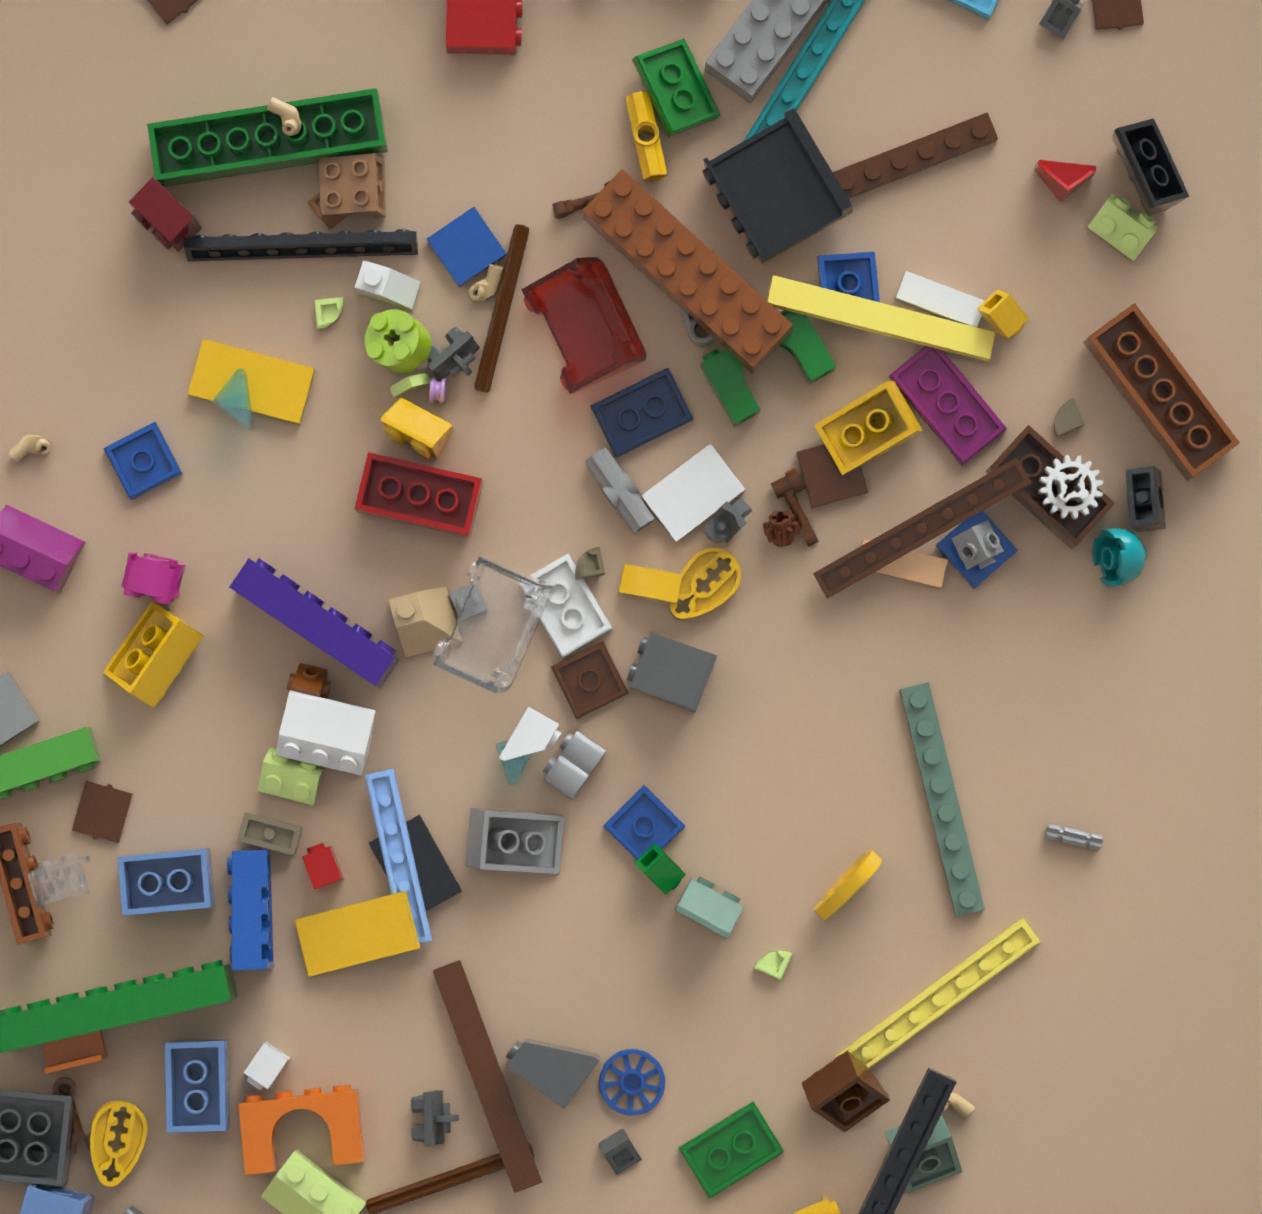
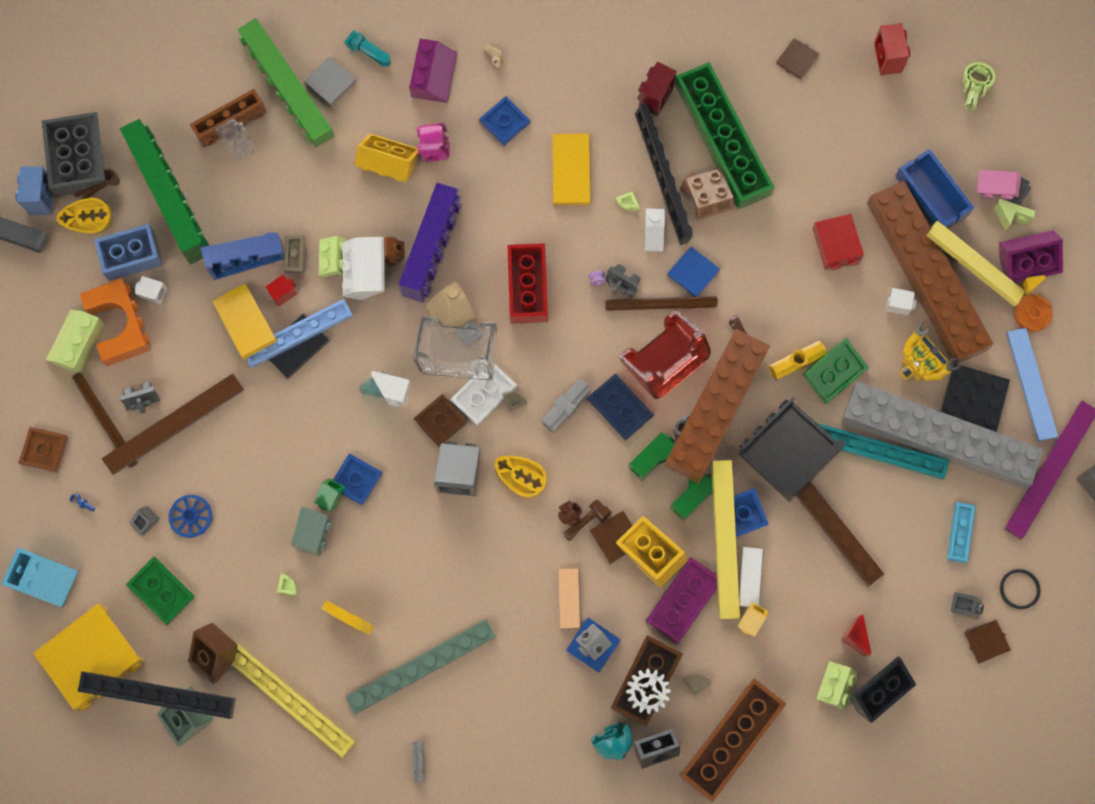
camera: 80 degrees right, 10 degrees down
(74, 1051) = (134, 179): orange panel -> none
(102, 811) = (285, 155): reddish brown piece -> none
(166, 881) = (249, 200): medium blue brick -> none
(235, 399) = (556, 160): clear light blue slope -> none
(289, 116) = (741, 139): tan arm -> none
(397, 341) = (620, 244): lime brick -> none
(410, 384) = (596, 260): yellowish green tile -> none
(417, 427) = (568, 269): yellow slope -> none
(487, 286) = (671, 291): tan arm -> none
(514, 841) = (325, 401): light grey slope -> none
(552, 1068) = (185, 460): dark grey slope -> none
(574, 764) = (383, 424): light grey brick -> none
(650, 583) = (511, 440): yellow slope -> none
(693, 492) = (577, 452): white tile -> none
(727, 521) = (563, 475): dark grey hips -> none
(922, 528) = (595, 603): reddish brown plate -> none
(959, 1105) = (222, 730): tan arm -> none

